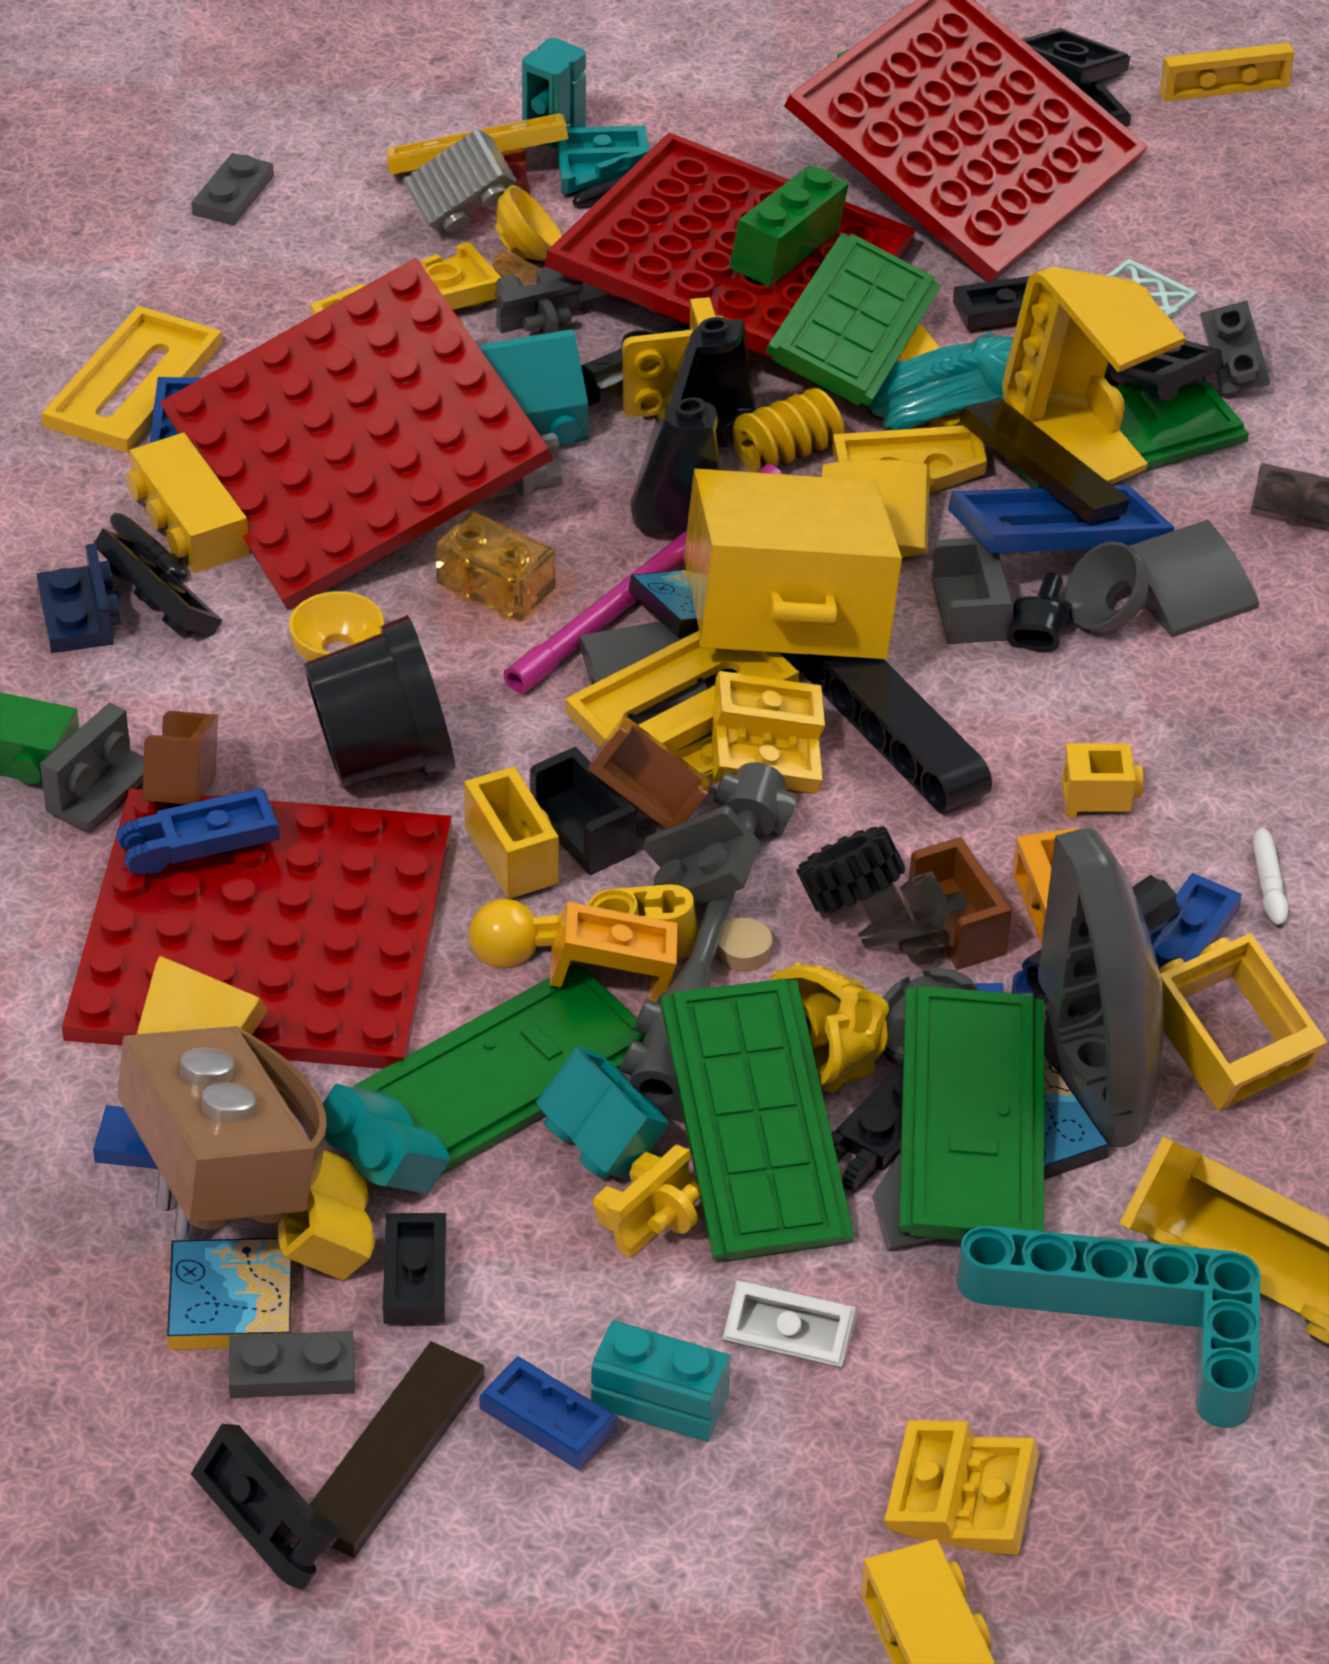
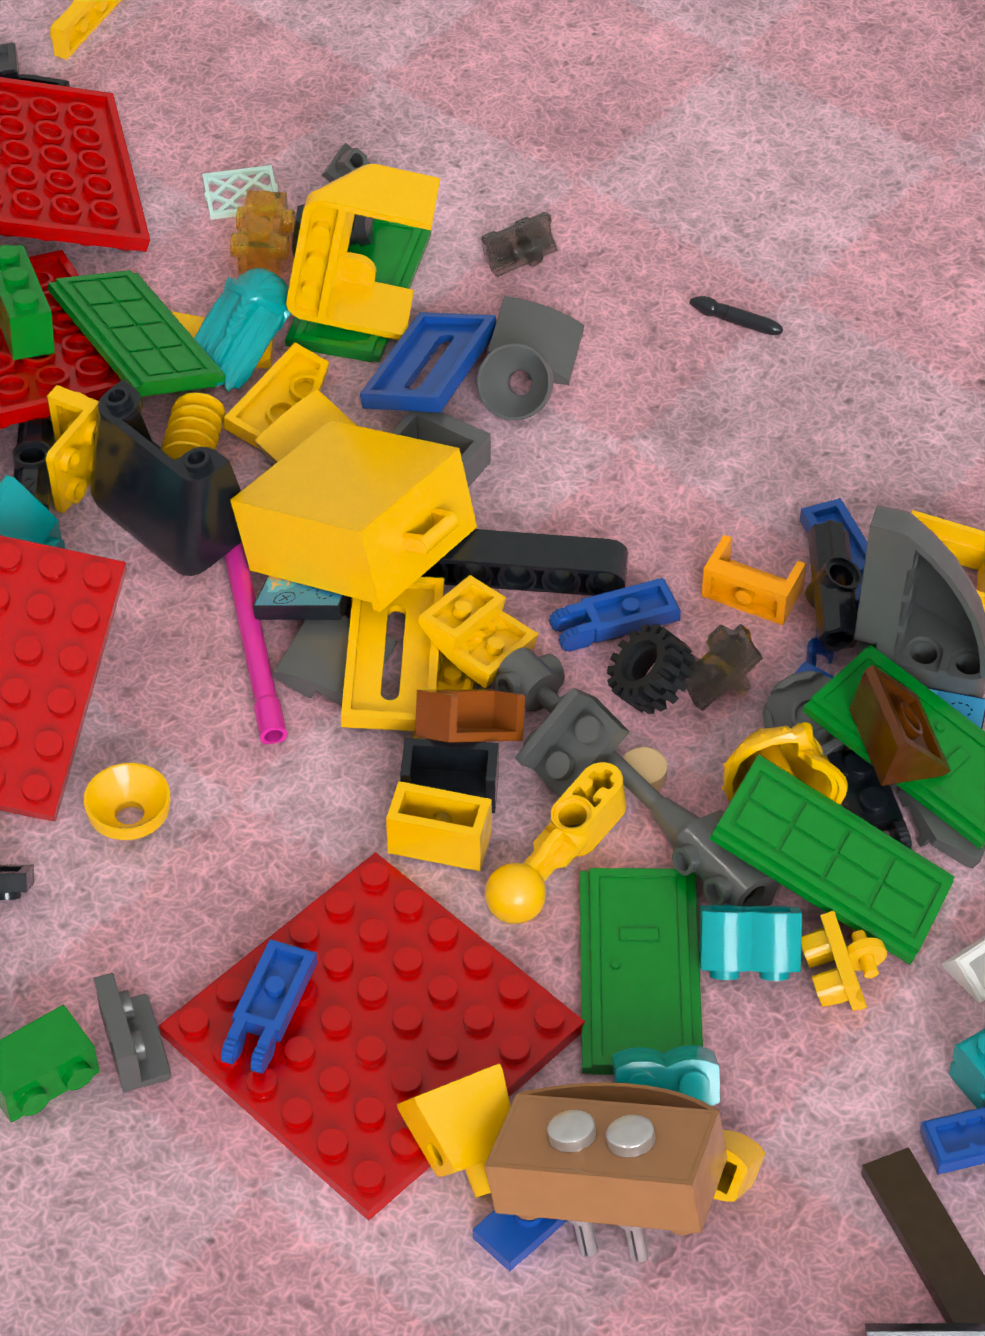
camera: 50 degrees left, 5 degrees up
(182, 760) = (181, 970): dark orange panel -> none
(227, 1291) = (717, 1268): tile -> none
(291, 1364) = (811, 1262): dark grey plate -> none
(380, 707) = (262, 817): black piece -> none
(414, 1268) = (789, 1133): black plate -> none
(495, 565) = (159, 675): clear yellow brick -> none
(615, 942) = (605, 836): light orange panel -> none
(908, 816) = (614, 614): none -> blue hinge
(943, 1065) = (895, 730): none -> reddish brown slope
(984, 926) = (703, 615): dark orange panel -> none
(990, 302) = (180, 255): black plate -> none
(1040, 618) = (506, 435): black piece -> none
(1044, 460) = (370, 333): dark brown tile -> none
(1100, 778) = (675, 499): yellow brick -> none
(1270, 878) = (849, 489): white piece -> none

